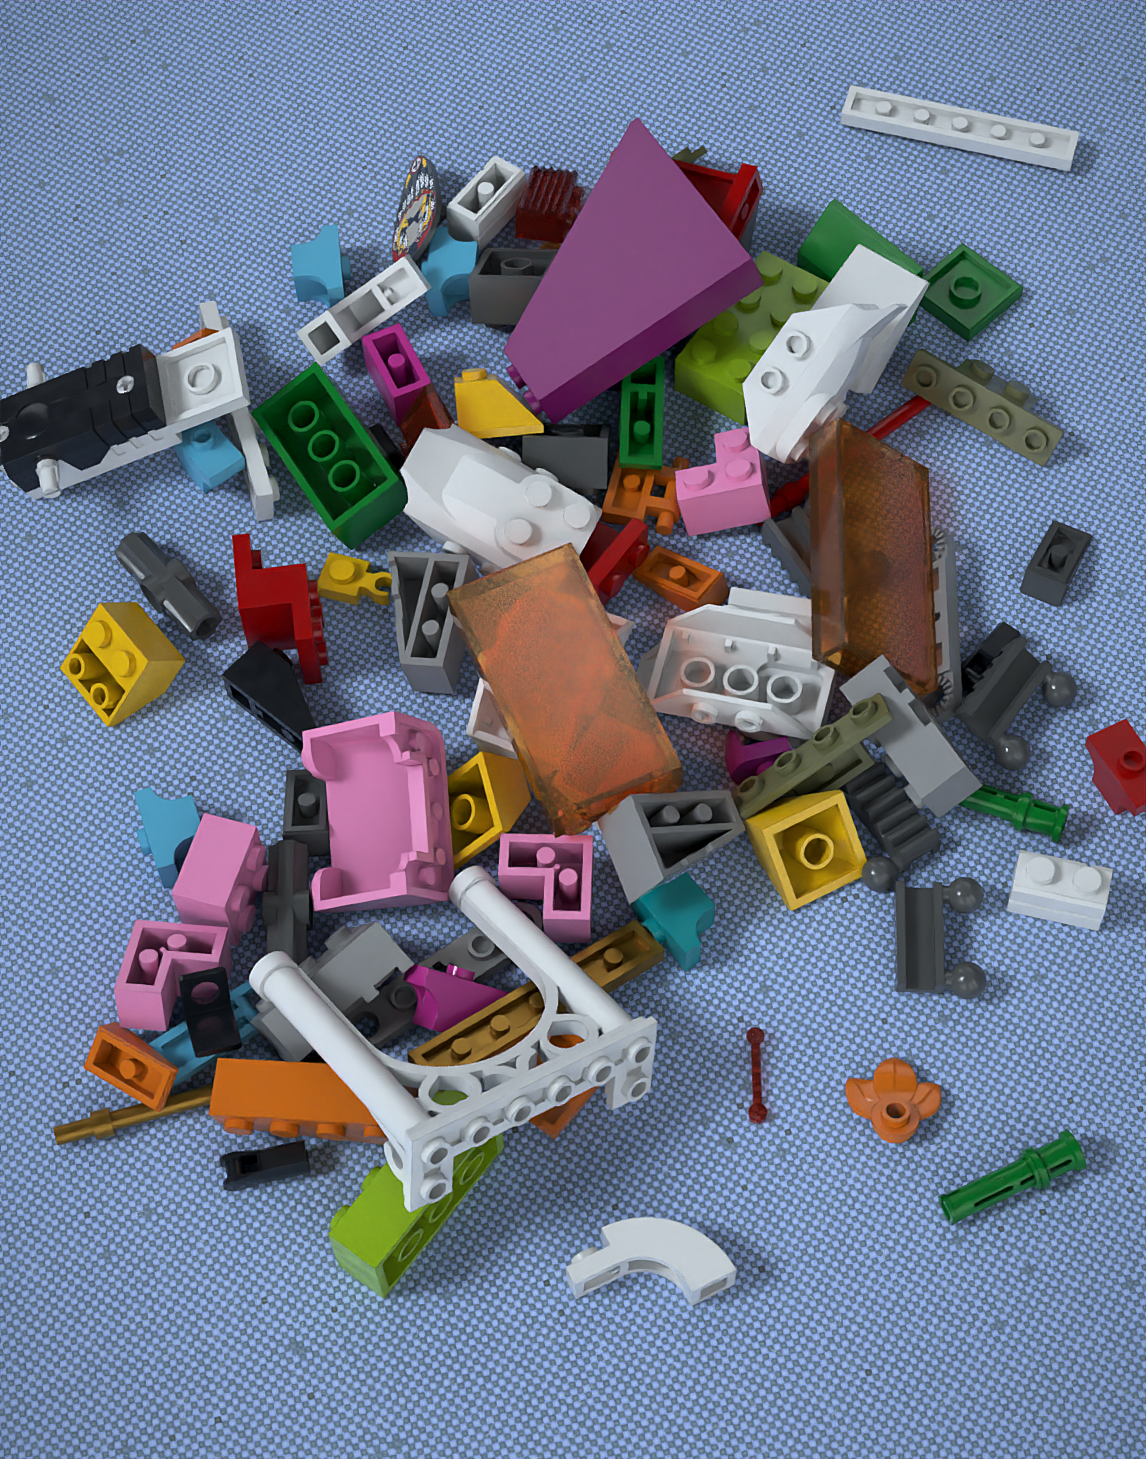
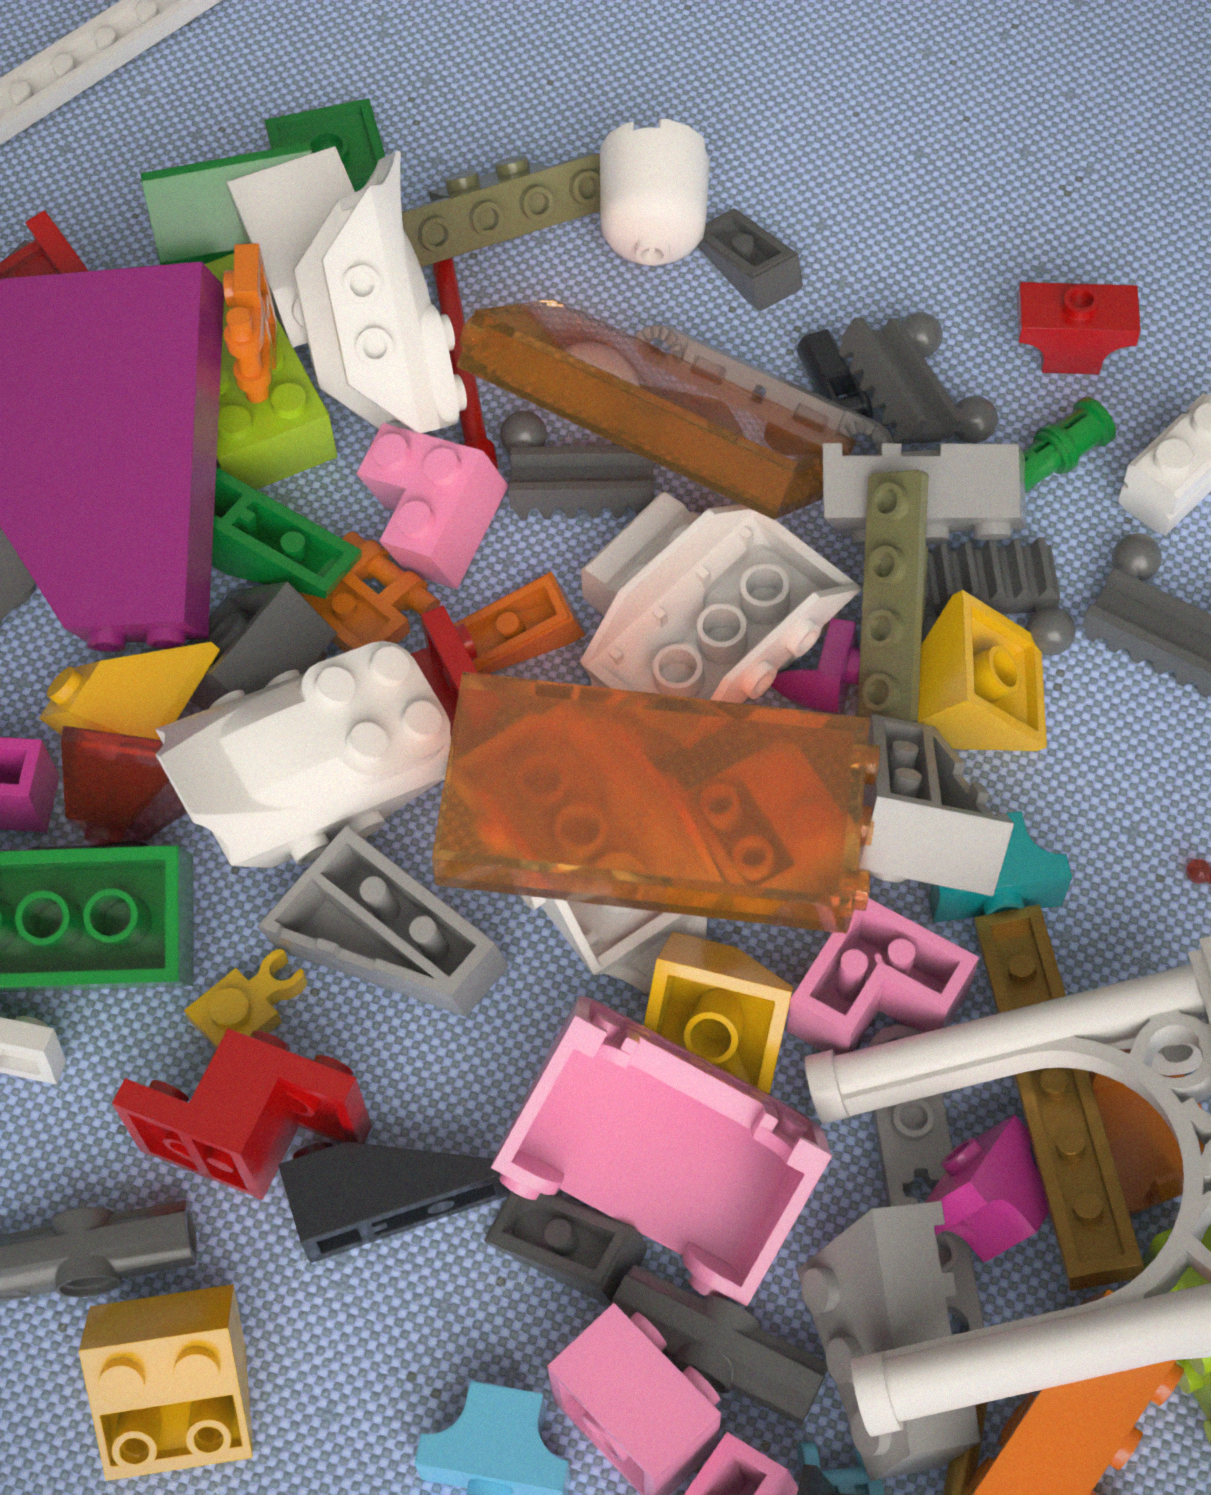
camera: 60 degrees left, 0 degrees up
(758, 316) = (250, 322): none -> orange plate
(1047, 478) = (653, 191): none -> white cylinder

